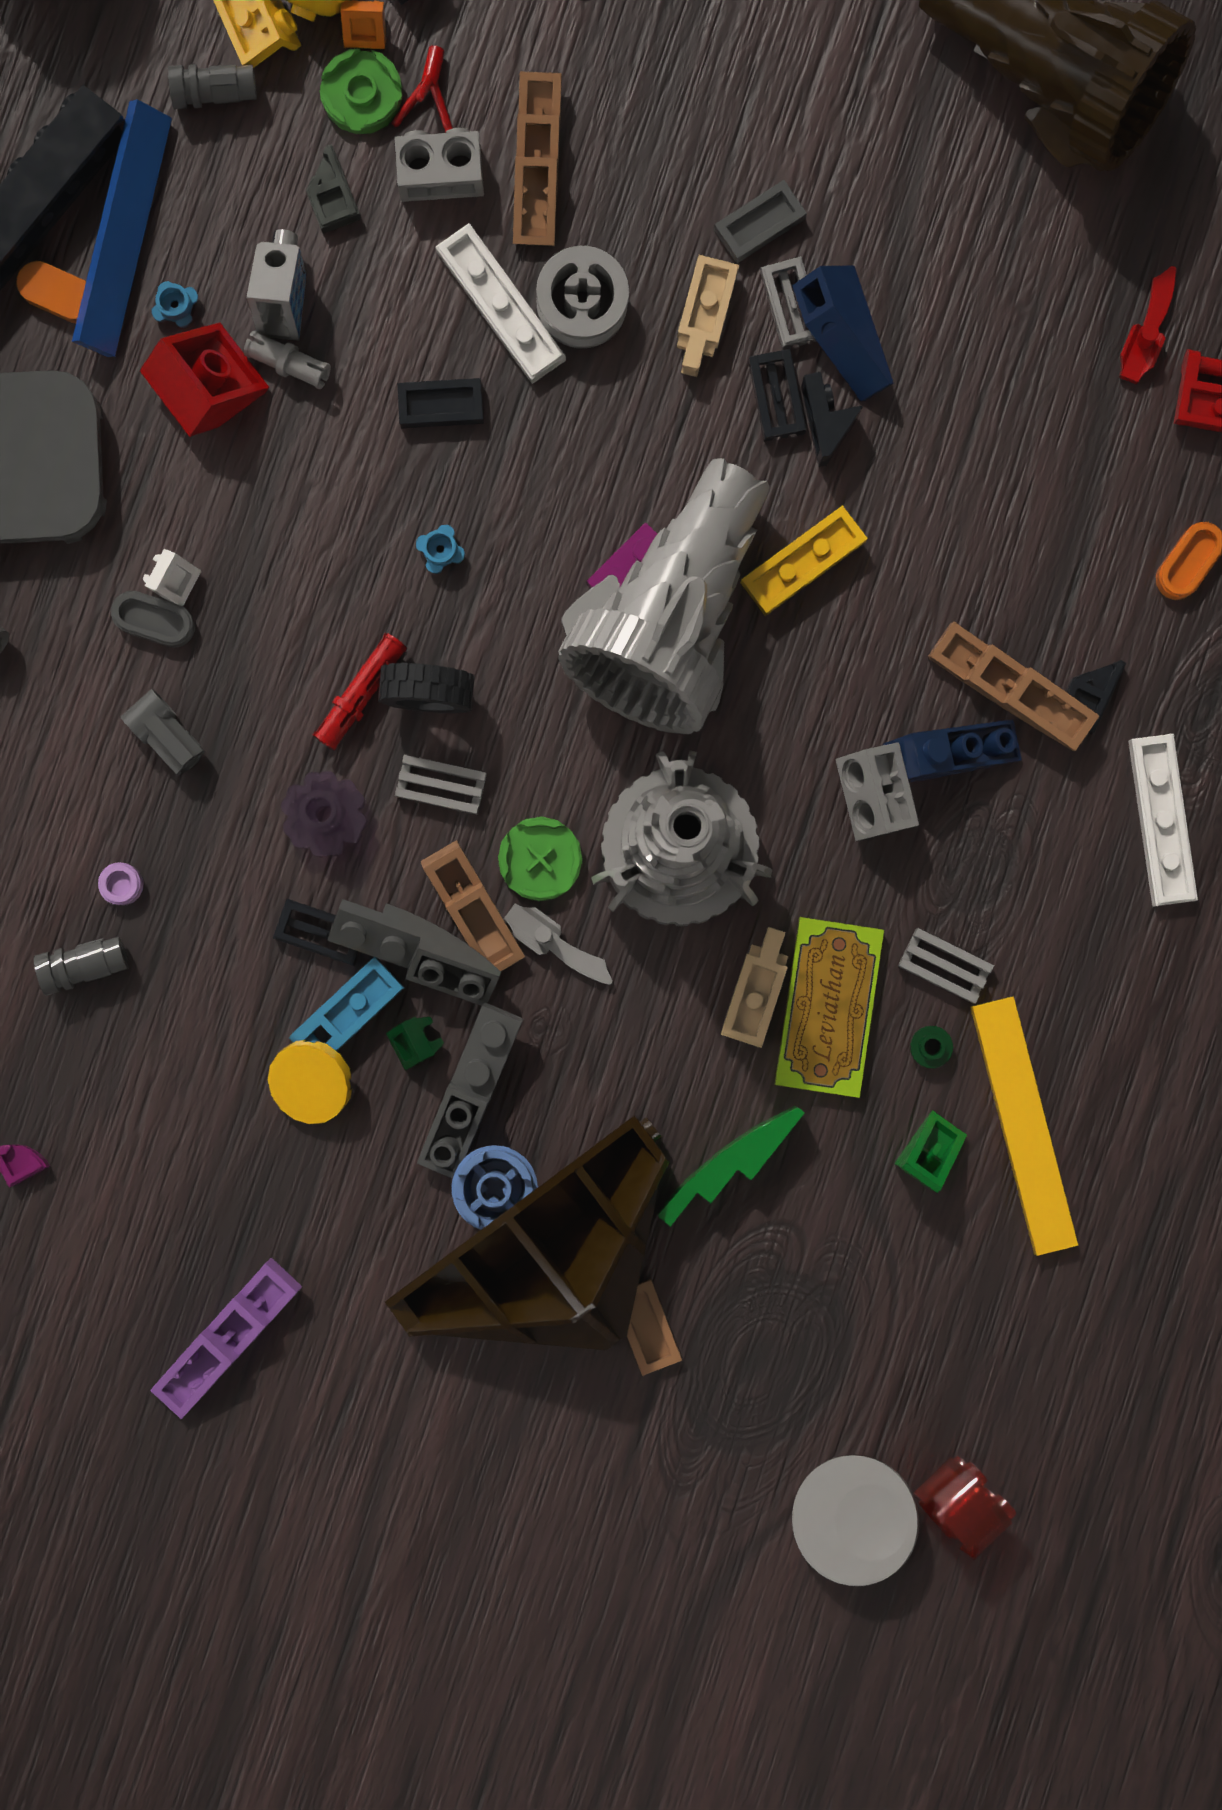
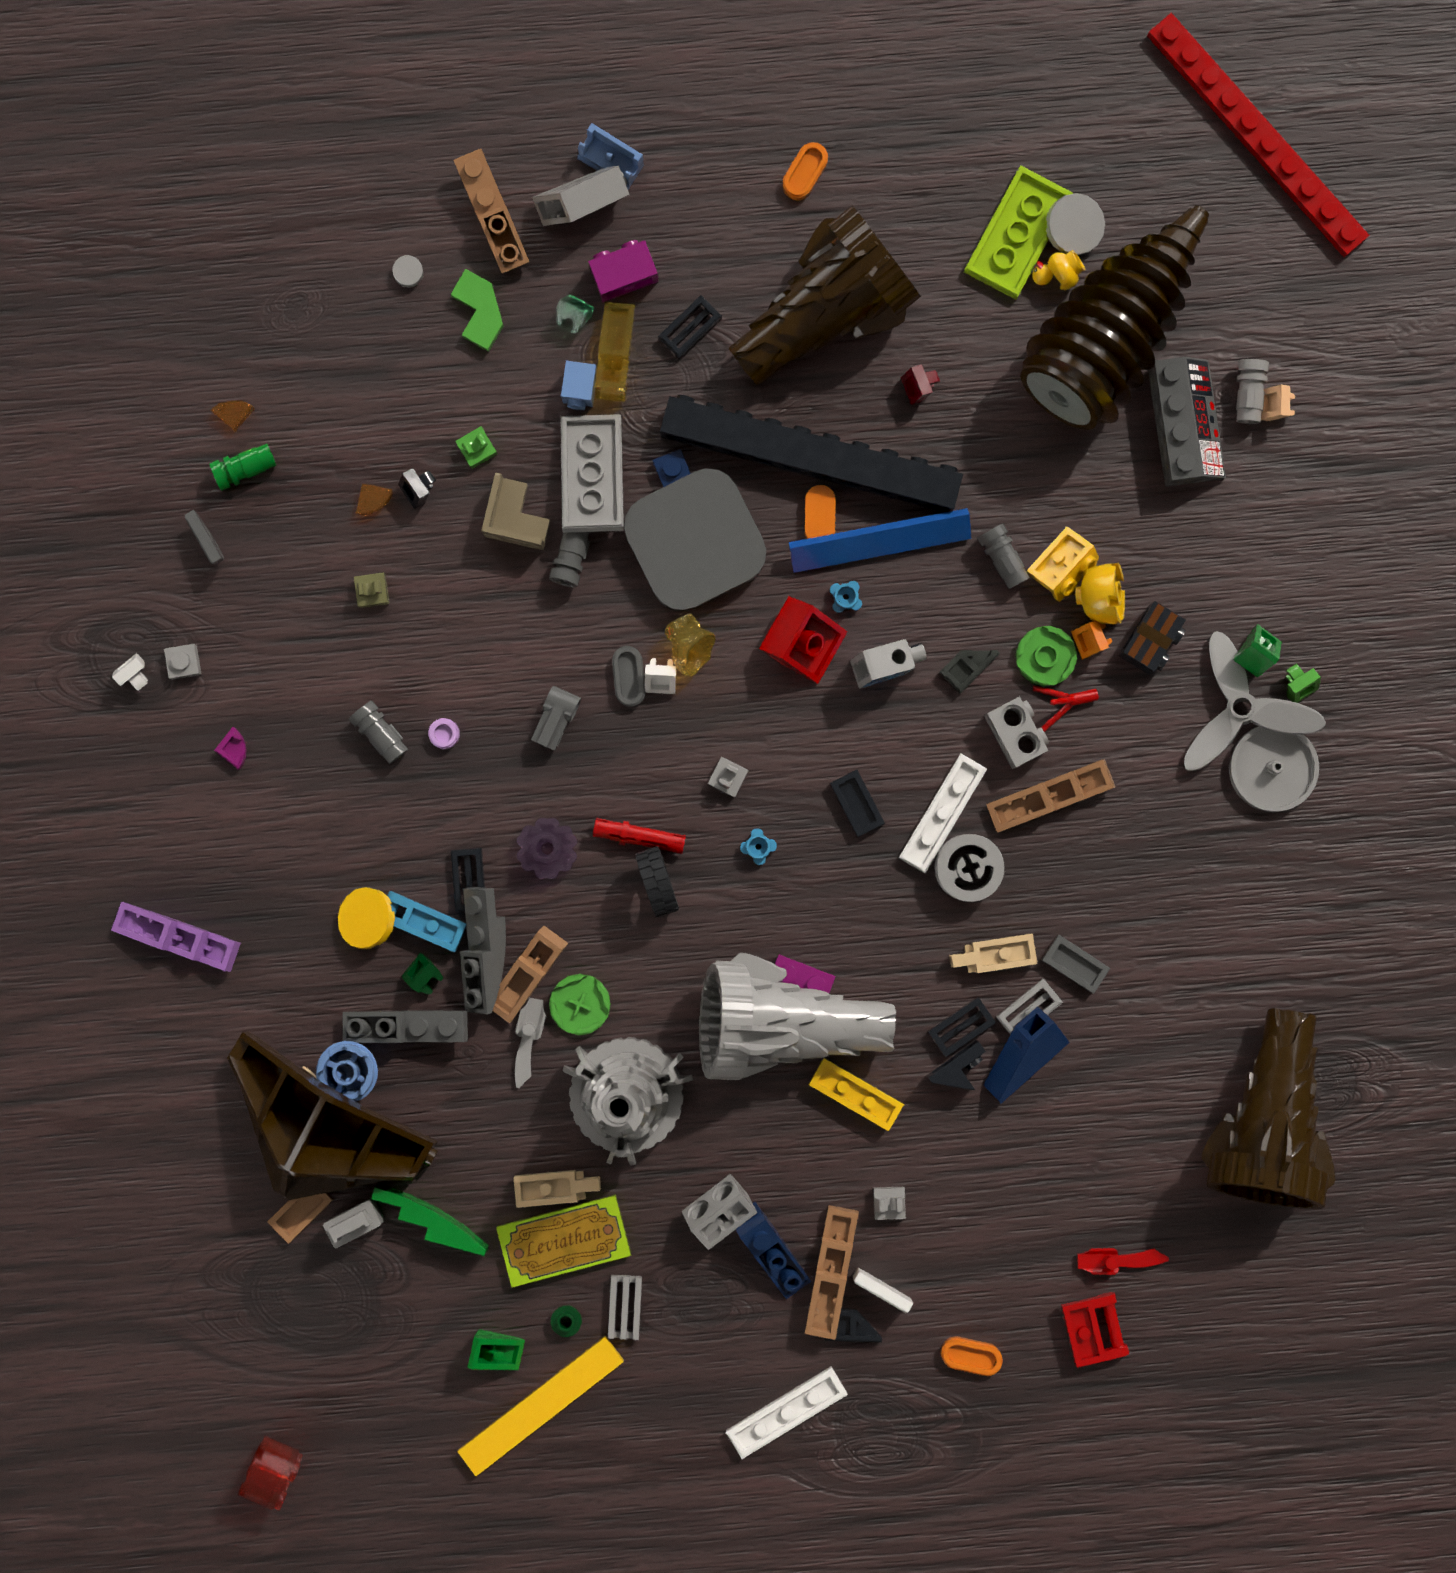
camera: 65 degrees right, 0 degrees up
(144, 519) = (690, 644): none -> clear yellow hair
(287, 359) = (840, 688): light grey pin -> none
(336, 549) = (728, 777): none -> light grey tile
(405, 777) = (588, 916): light grey tile -> none
(691, 1263) = (354, 1222): none -> light grey piece
(855, 1520) = (231, 1405): light grey piece -> none
(957, 579) = (889, 1203): none -> light grey tile
(1062, 632) = (882, 1290): none -> white tile

